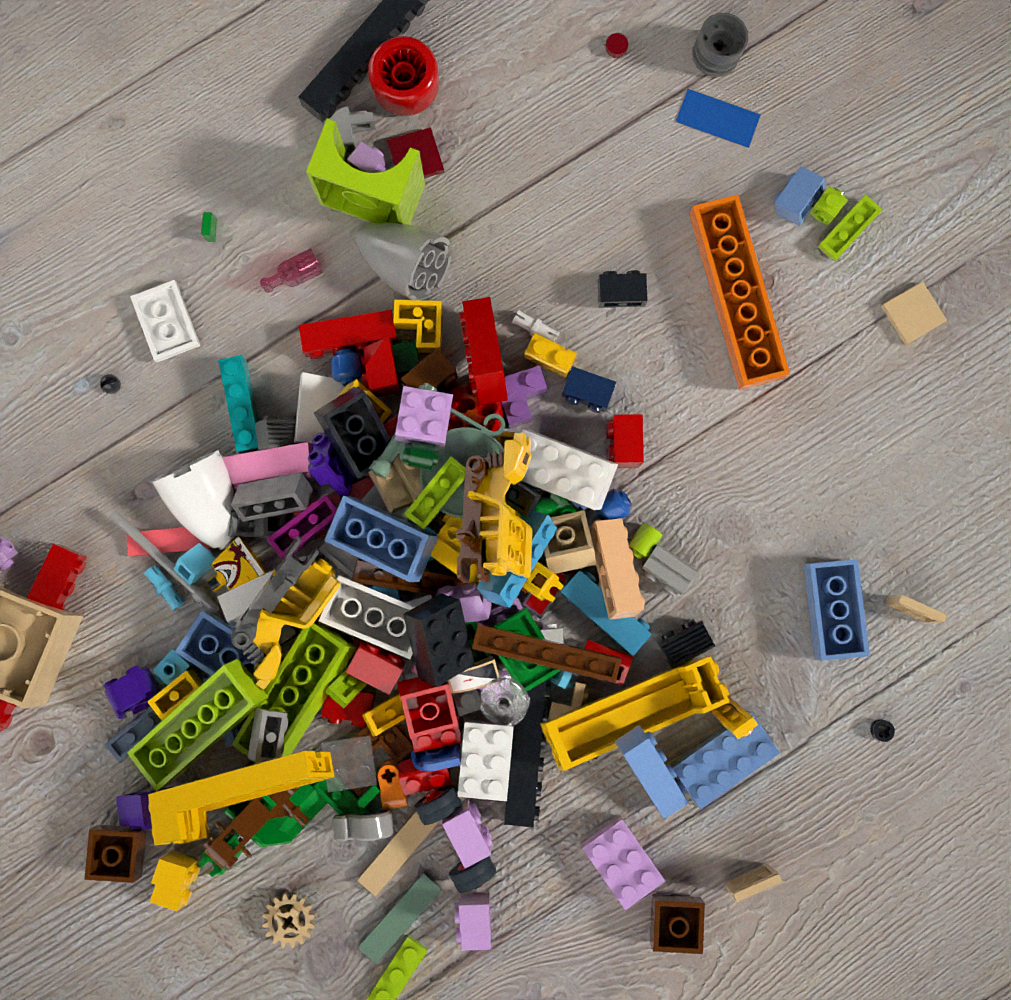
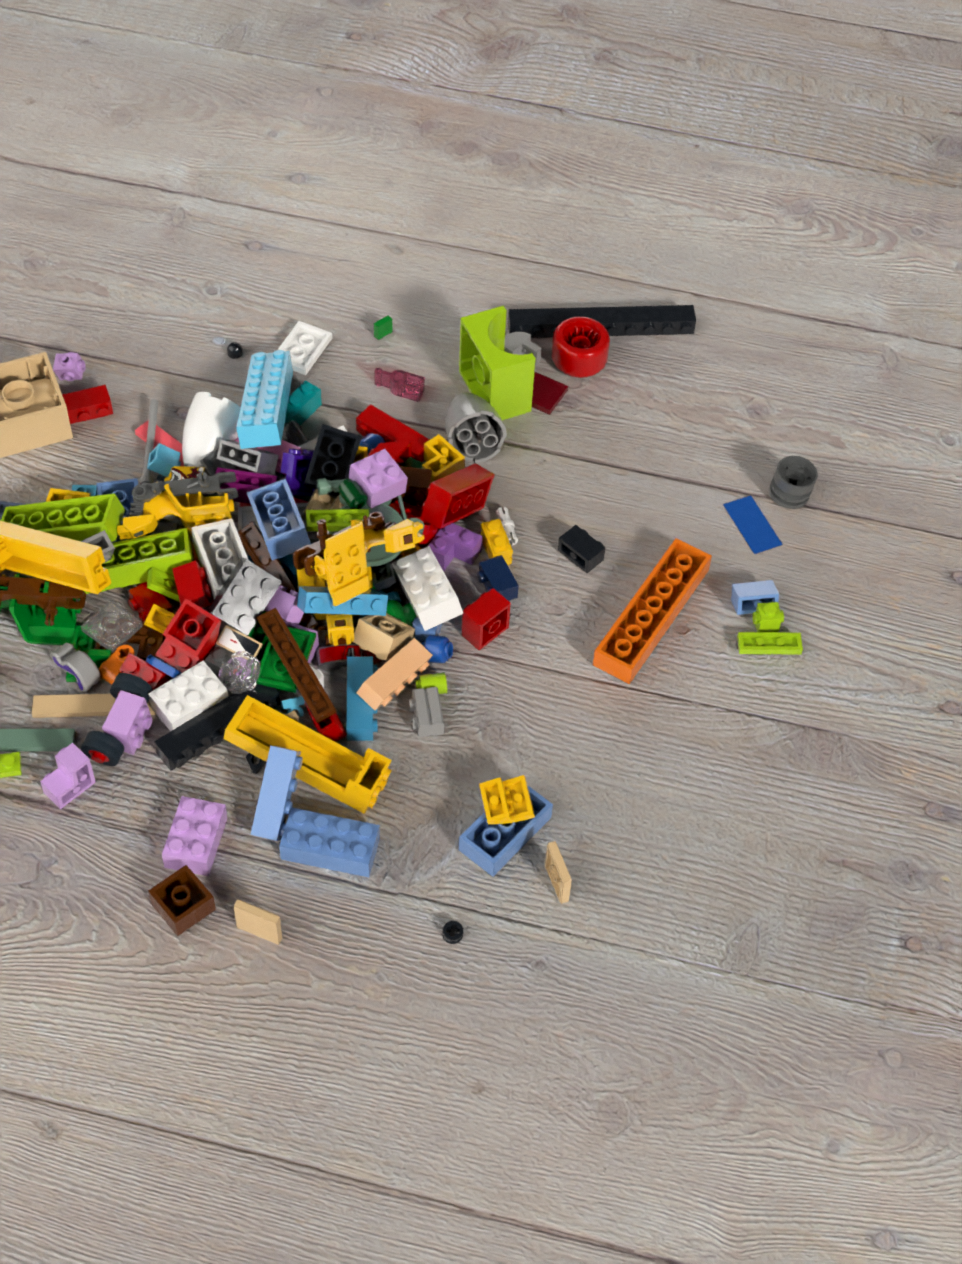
camera: 45 degrees right, 30 degrees down
(131, 691) = (46, 477): dark purple brick -> none
(164, 587) = (132, 461): medium azure pin -> none
(219, 424) = (265, 400): none -> medium azure brick
(616, 45) = (730, 438): dark red piece -> none
(686, 643) = (400, 757): black brick -> none
(735, 718) = (363, 810): yellow plate -> none
(826, 594) = (506, 800): none -> yellow slope
(914, 313) = (760, 725): tan tile -> none

